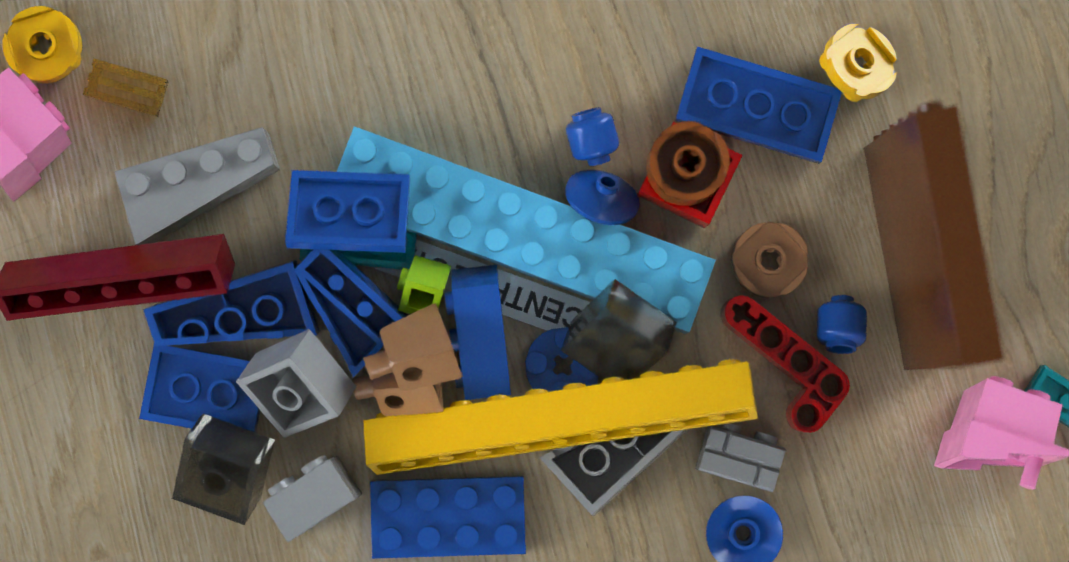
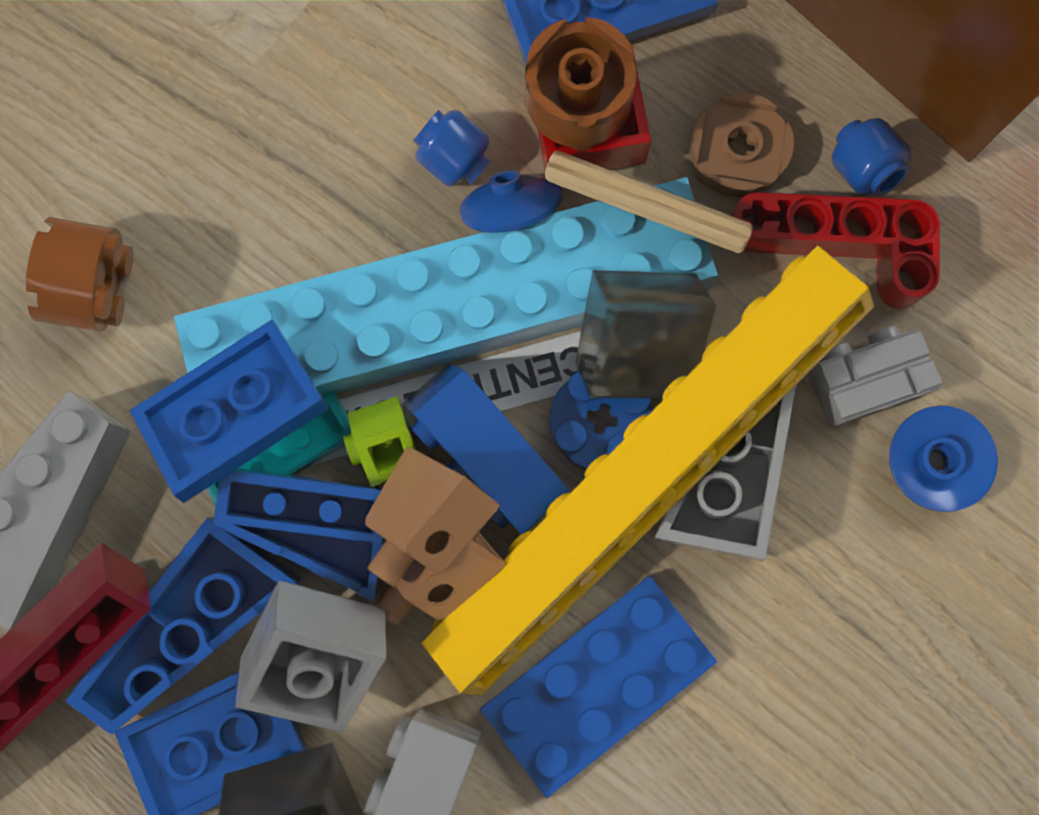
camera: 25 degrees left, 5 degrees down
(314, 57) = (78, 274): none -> dark orange brick
(678, 260) = (648, 201): none -> tan axle

